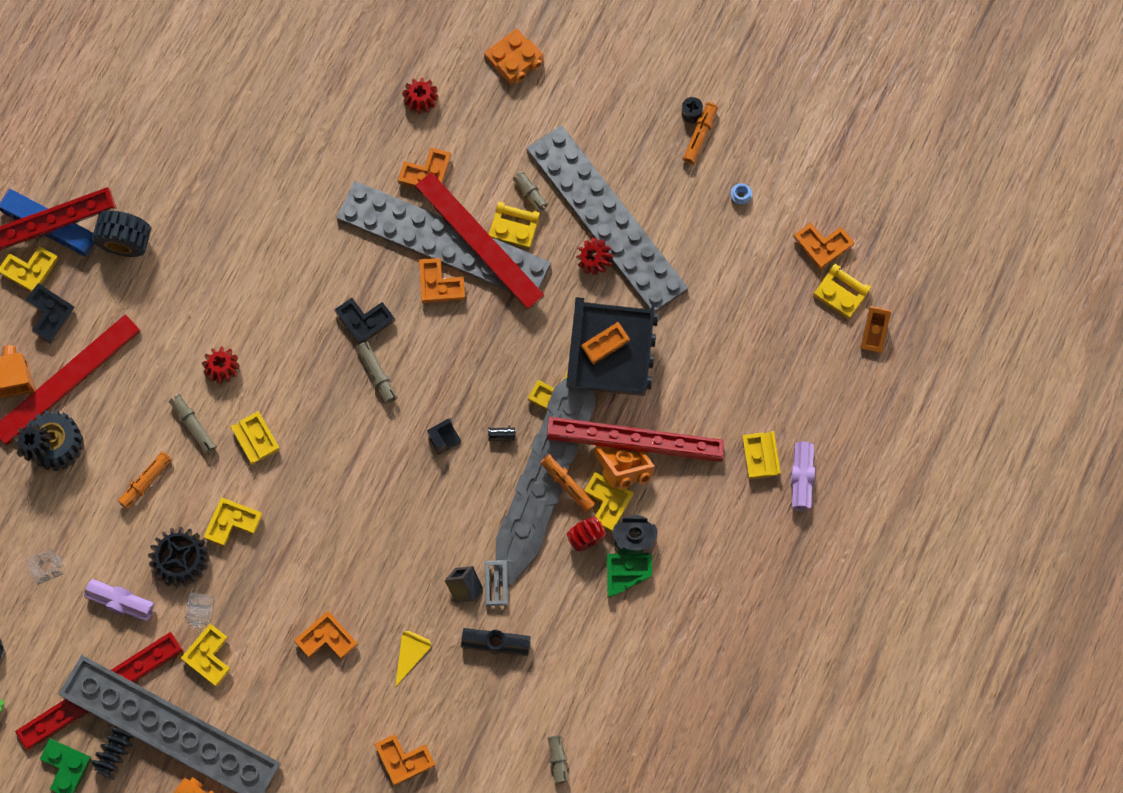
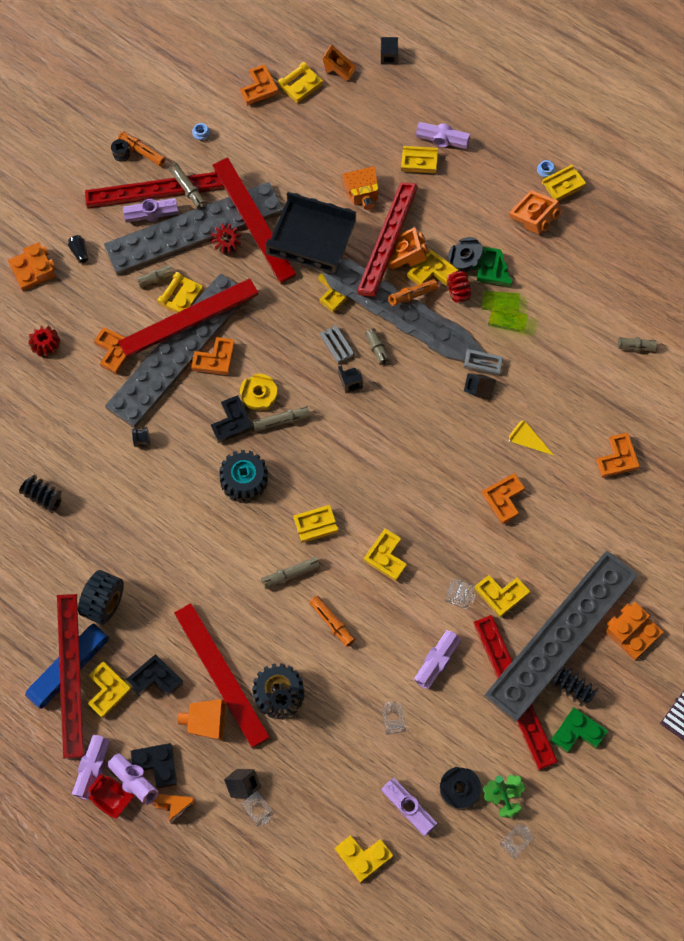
camera: 75 degrees left, 5 degrees down
(171, 561) = (417, 599): black gear -> none
(224, 357) = (235, 537): red gear -> none
(233, 143) = (41, 494): none -> black piece
(294, 347) = (243, 476): none -> black wheel
(323, 228) = (141, 437): none -> black wheel
(412, 350) = (258, 402): none -> yellow plate
(480, 640) = (530, 379): black piece -> none
(492, 458) = (377, 346): none -> dark tan pin
(500, 401) = (329, 332): none -> light grey tile
(502, 434) = (358, 334): black pin -> none
(548, 99) = (78, 248): none -> black cone
(559, 601) = (508, 319): none -> clear neon green plate
(584, 589) = (501, 300): none -> clear neon green plate
(605, 343) = (308, 234): orange plate -> none
(611, 153) = (159, 209): none -> lavender piece
(637, 270) = (251, 216): none -> red tile
(650, 164) = (149, 190): none -> red tile
(652, 200) = (192, 191): none -> dark tan pin
(704, 396) = (361, 186): none -> orange torso
(715, 607) = (536, 211): none -> orange plate
(767, 635) = (563, 183): none -> yellow plate
(784, 604) = (546, 165): none -> light blue plate
(913, 386) = (389, 50): none -> black panel

